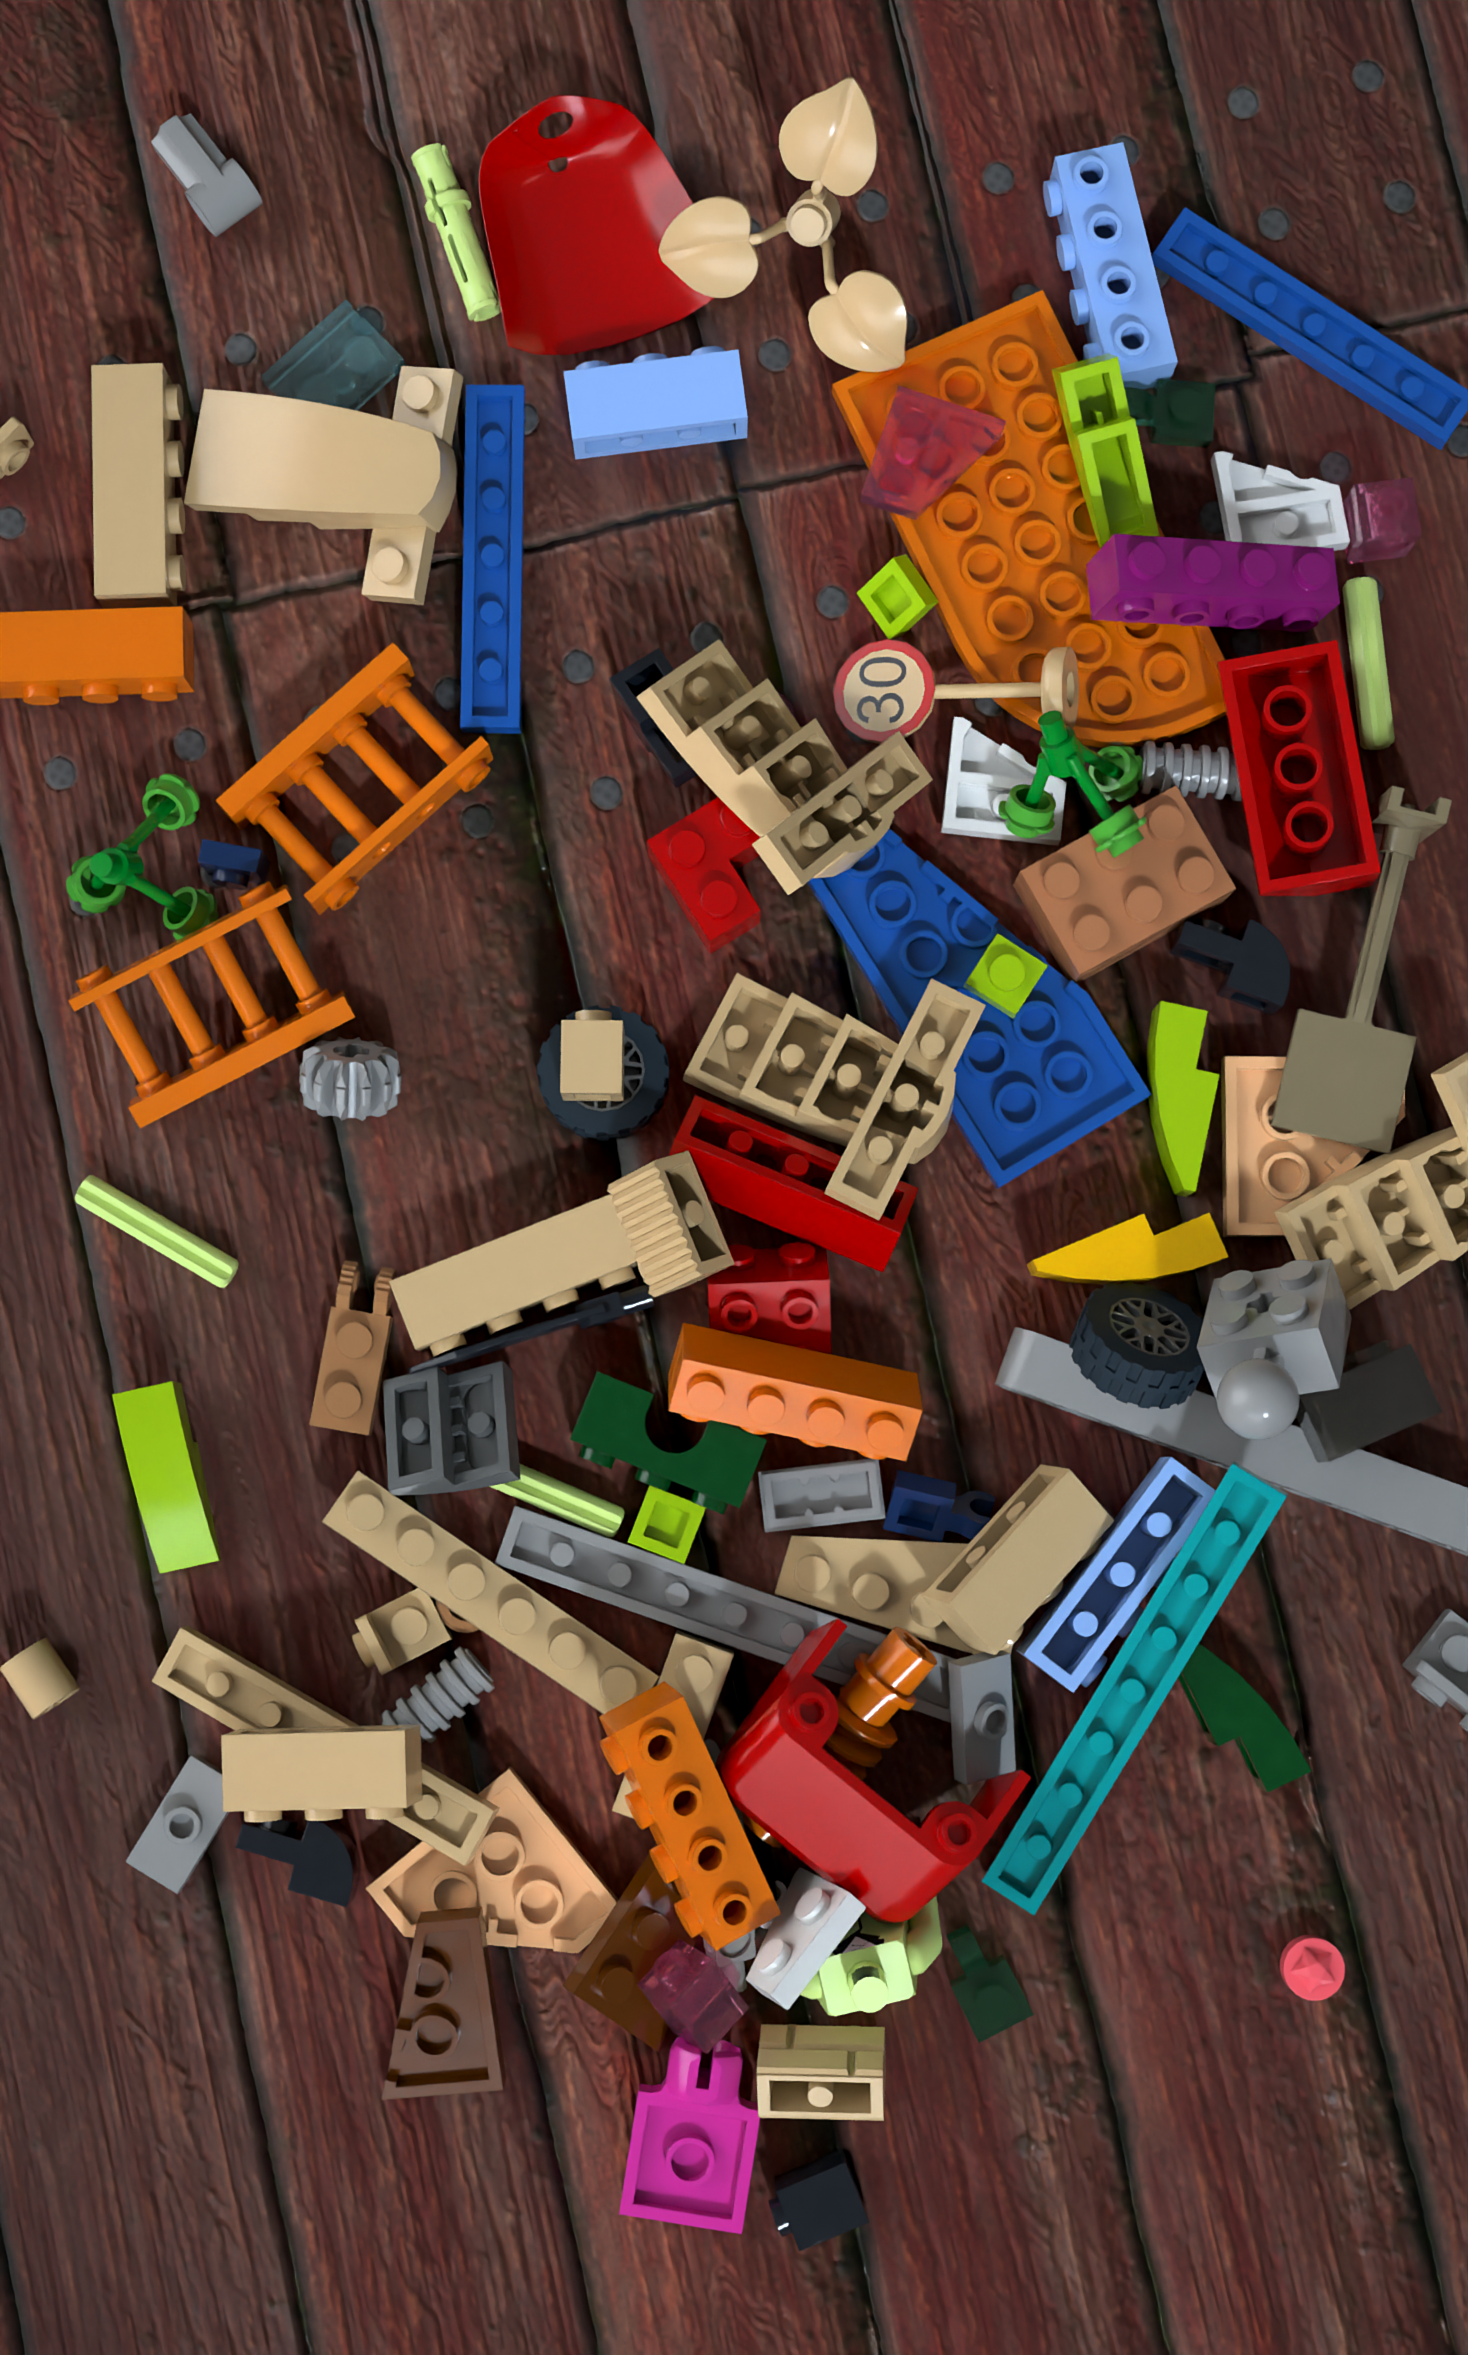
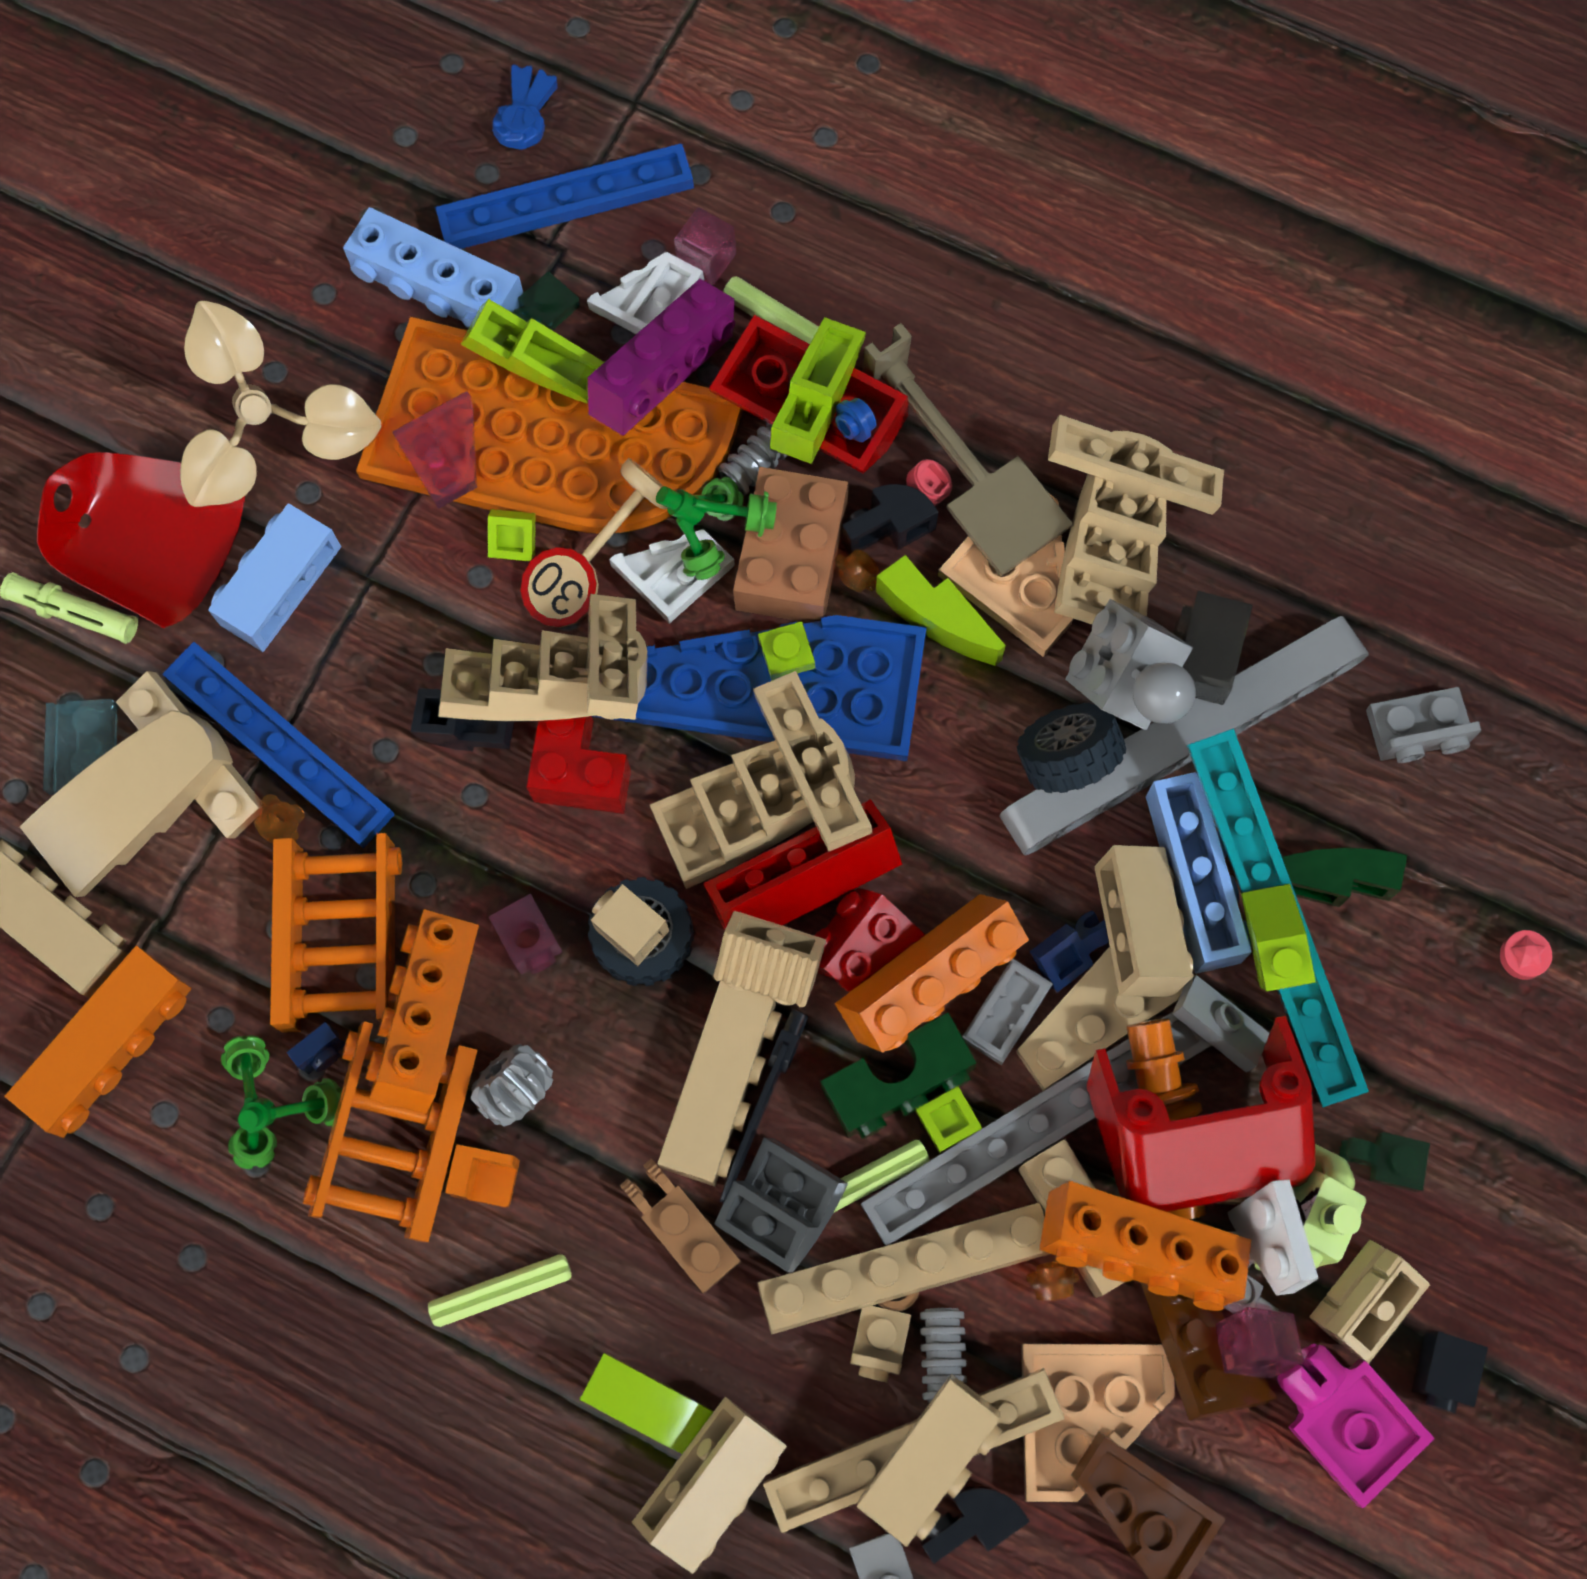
camera: 45 degrees left, 10 degrees down
(137, 1578) = (709, 1485): none -> tan brick
(246, 1123) = (482, 1176): none -> orange panel
(347, 934) = (423, 1013): none -> orange brick
(405, 623) = (270, 826): none -> clear orange plate
(499, 941) = (512, 921): none -> clear pink brick
(584, 1750) = (1052, 1281): none -> clear orange plate
(1105, 1709) = (1277, 938): none -> lime slope
(1134, 1253) = (1012, 712): yellow slope -> none
(1154, 975) = (857, 571): none -> clear orange plate
(1304, 841) = (855, 419): none -> blue plate
(1305, 775) = (816, 390): none -> lime slope
(1315, 968) = (931, 480): none -> coral tile
(1356, 208) = (520, 122): none -> blue piece

